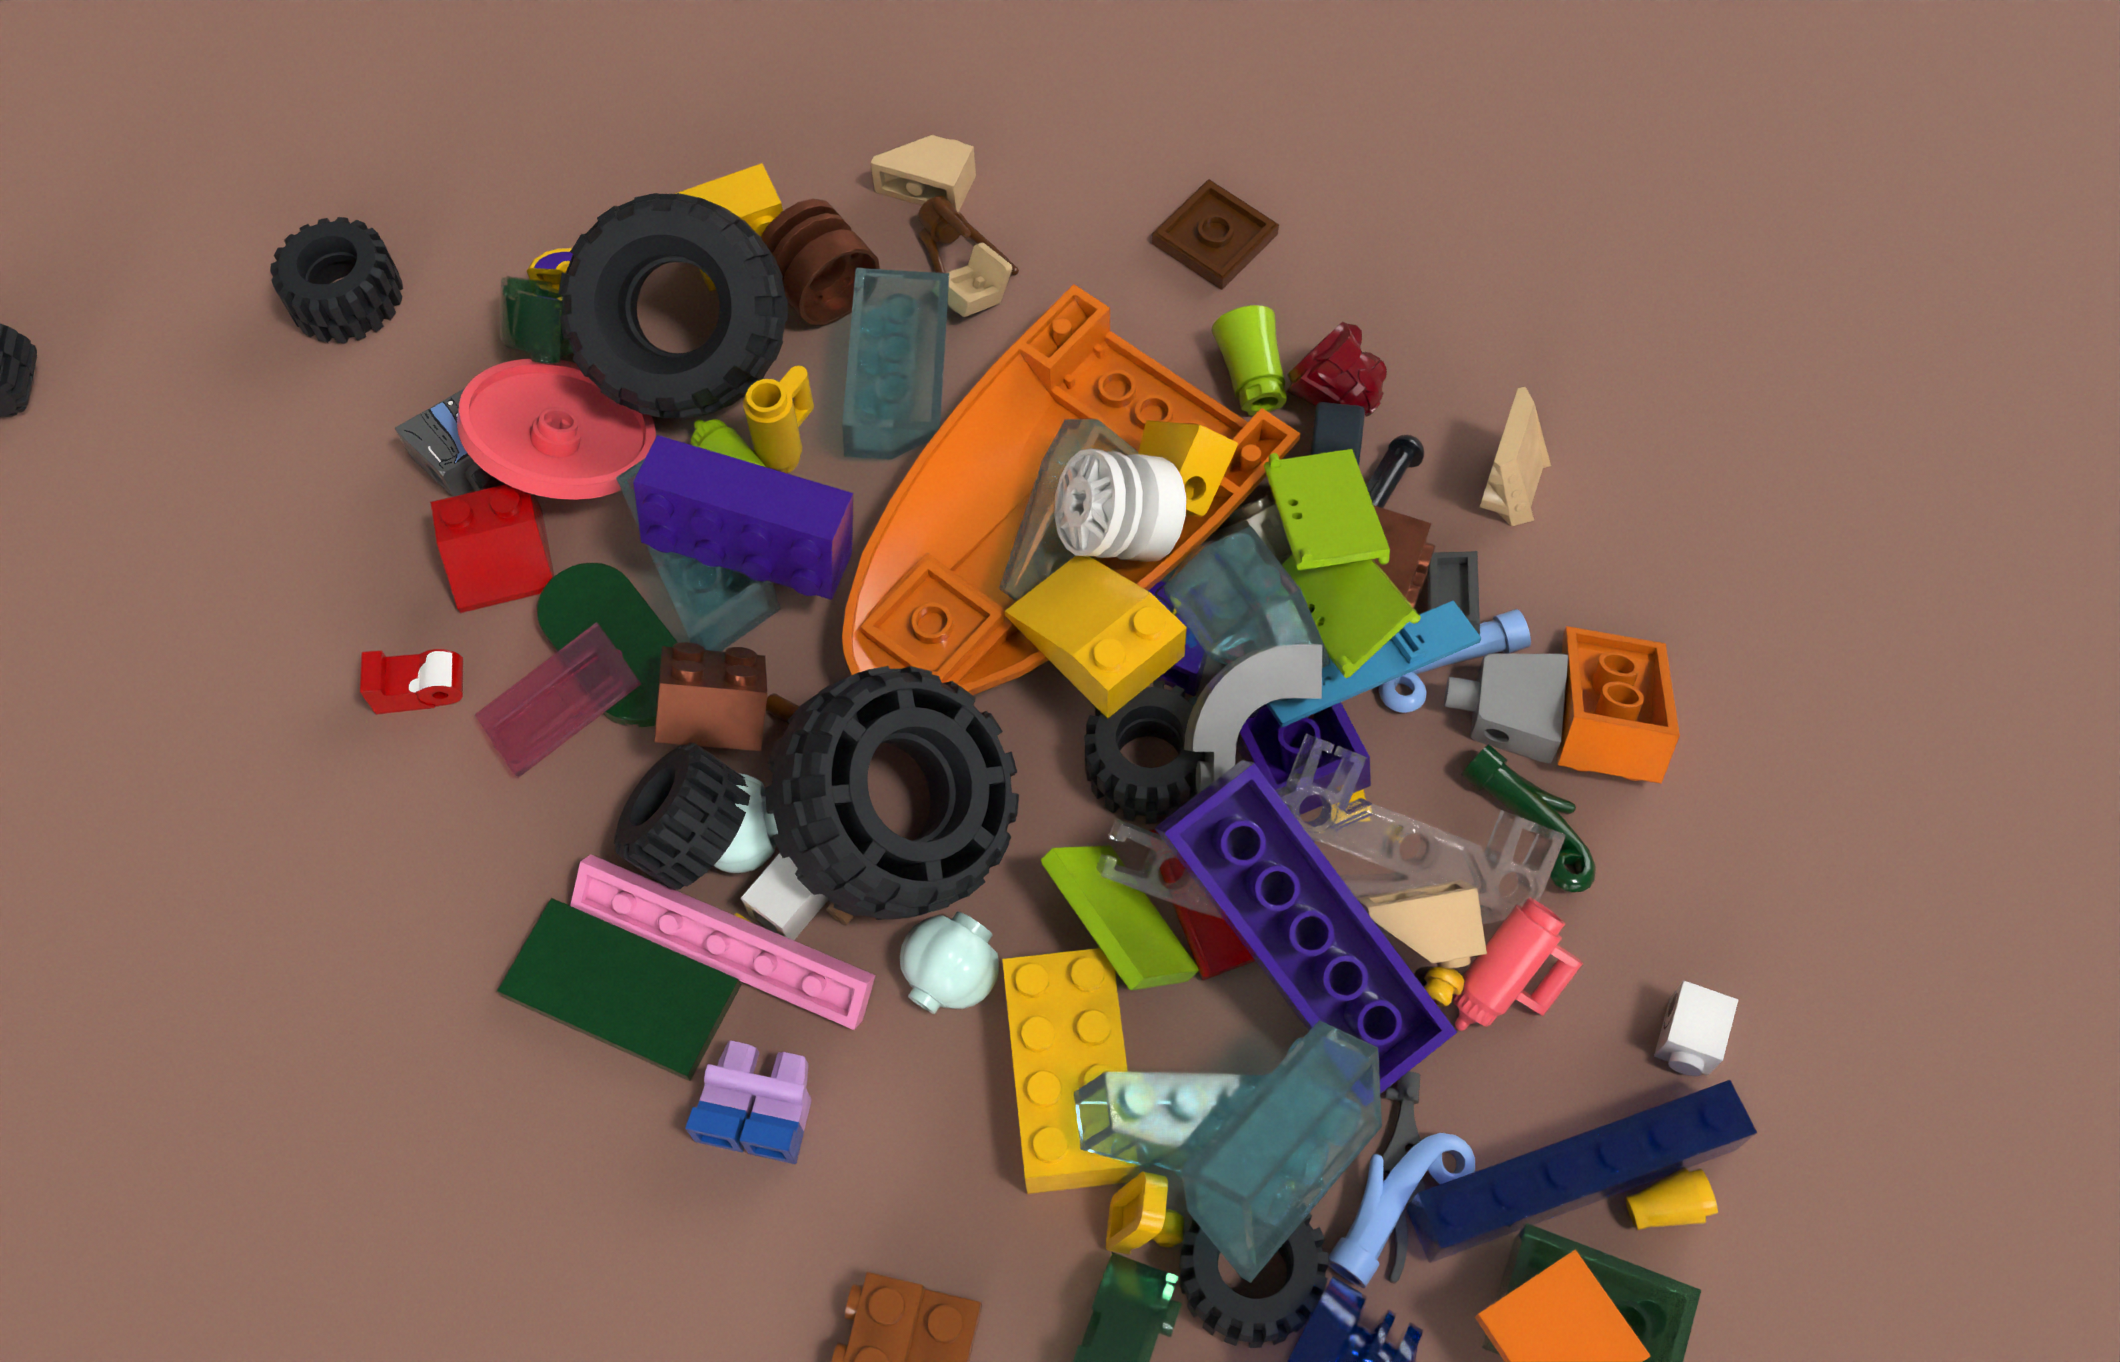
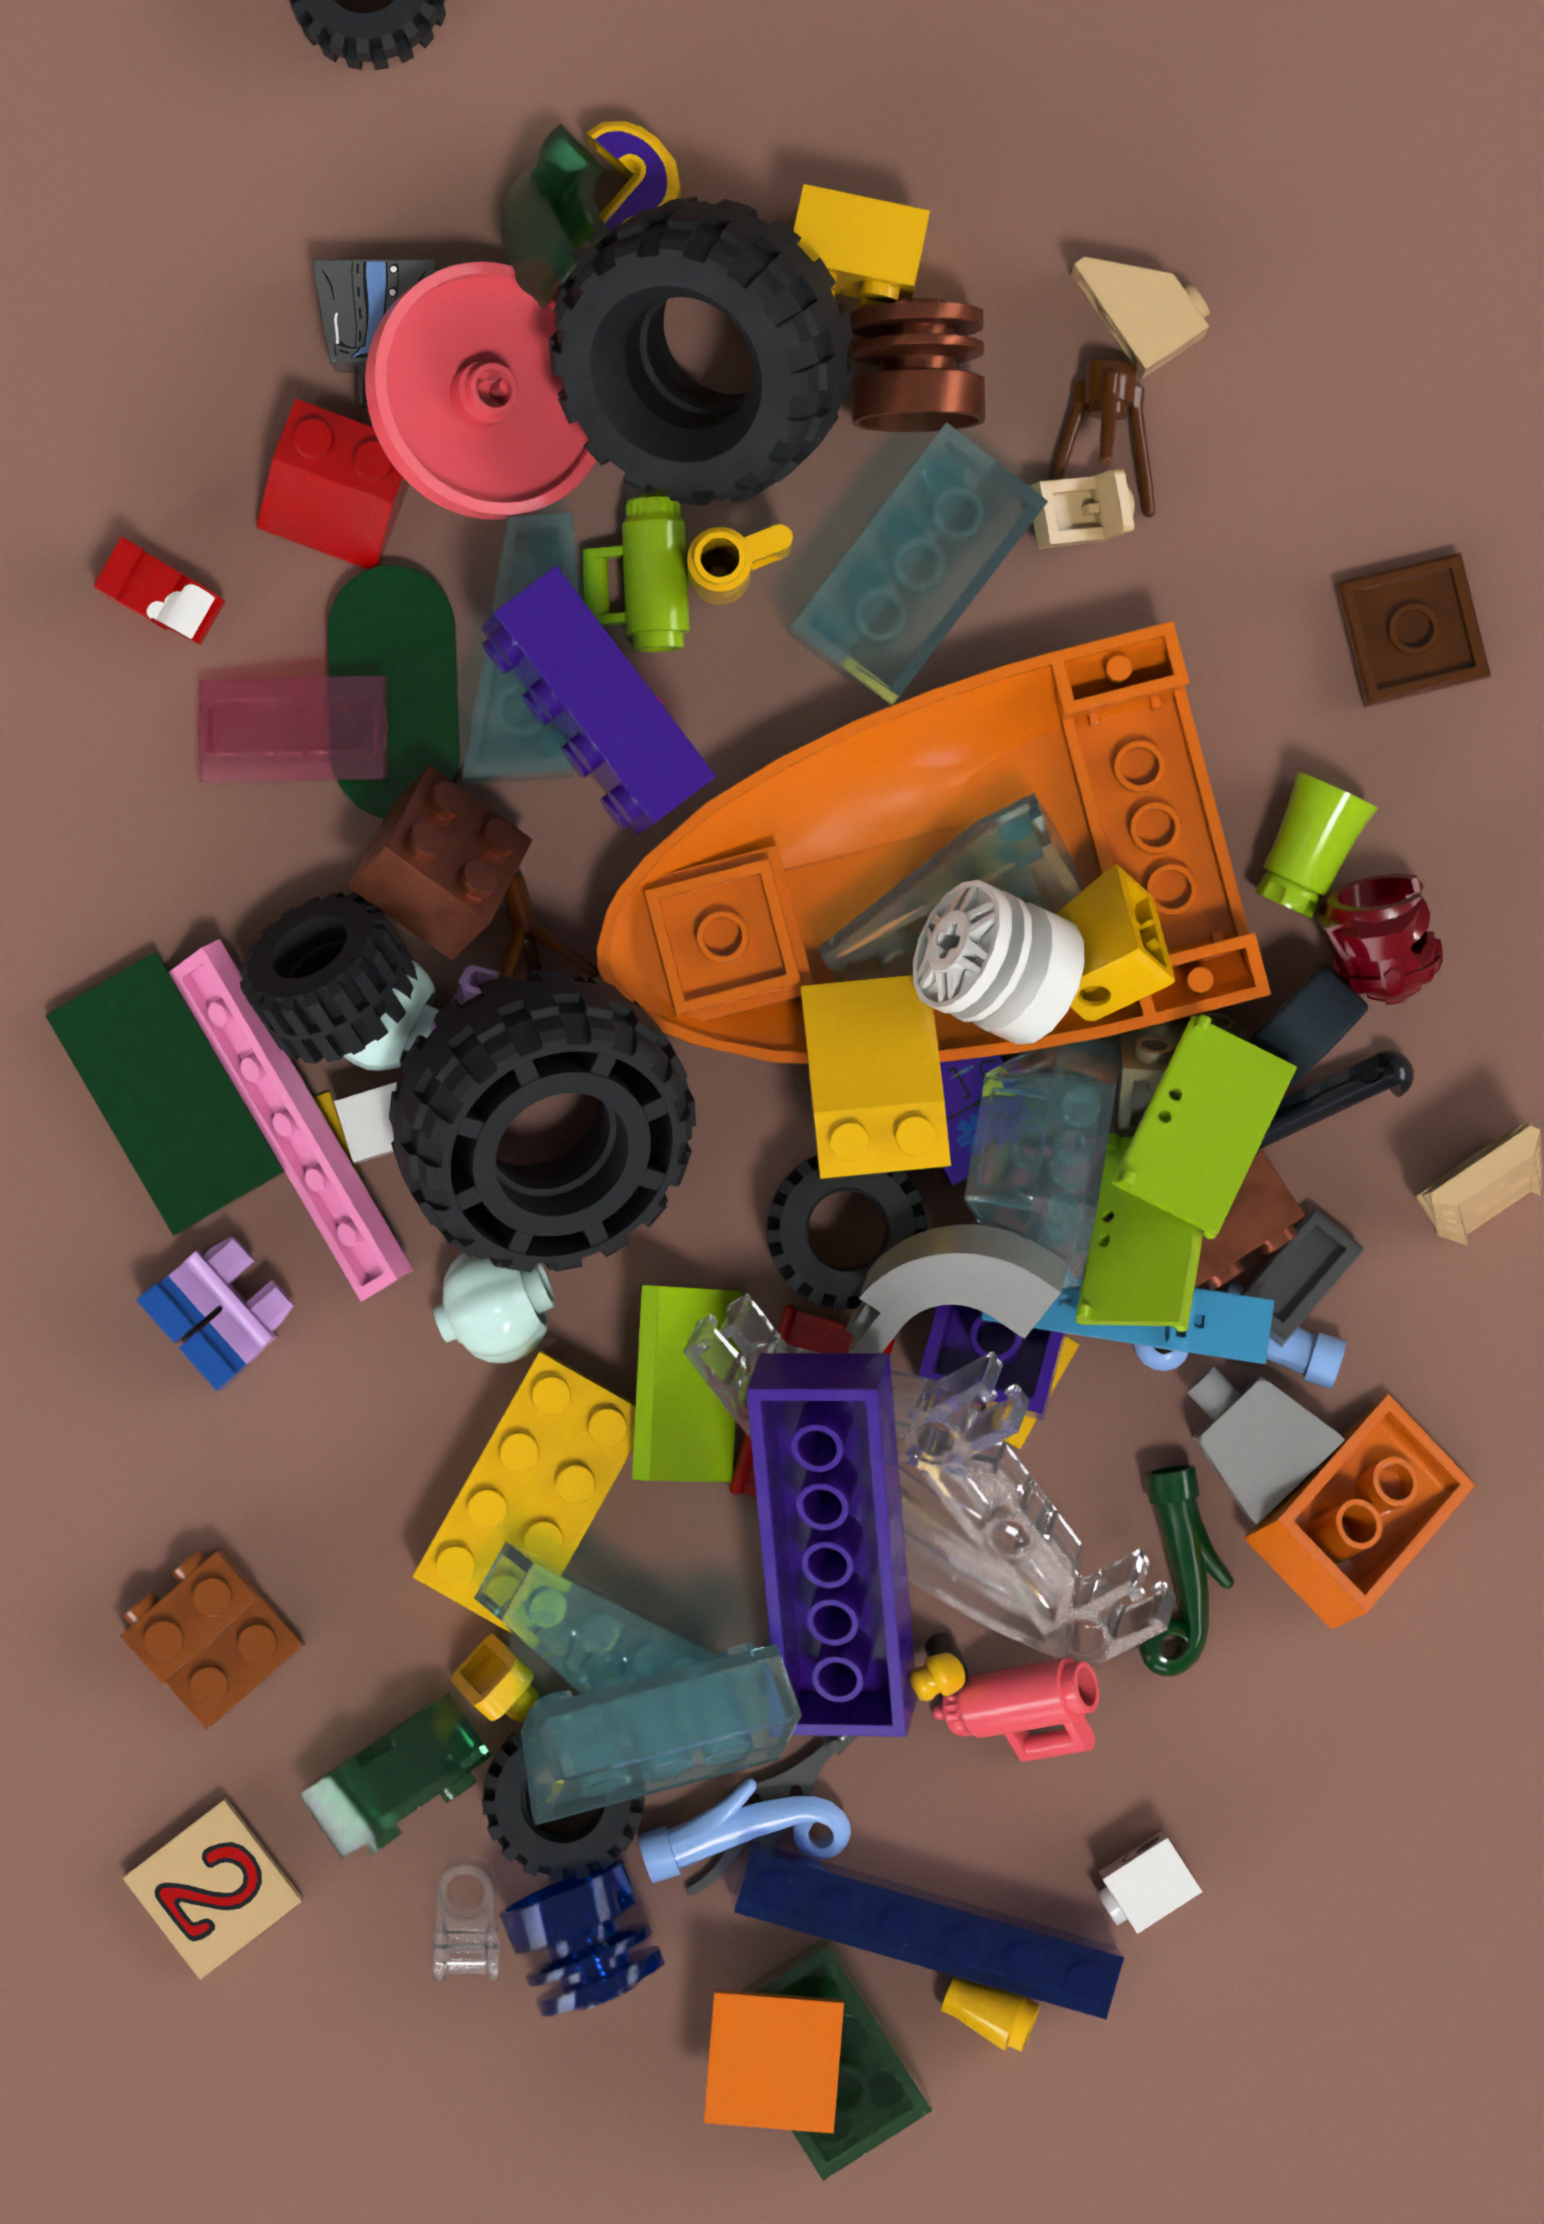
camera: 30 degrees right, 25 degrees up
(1433, 920) = (964, 1612): tan slope -> none

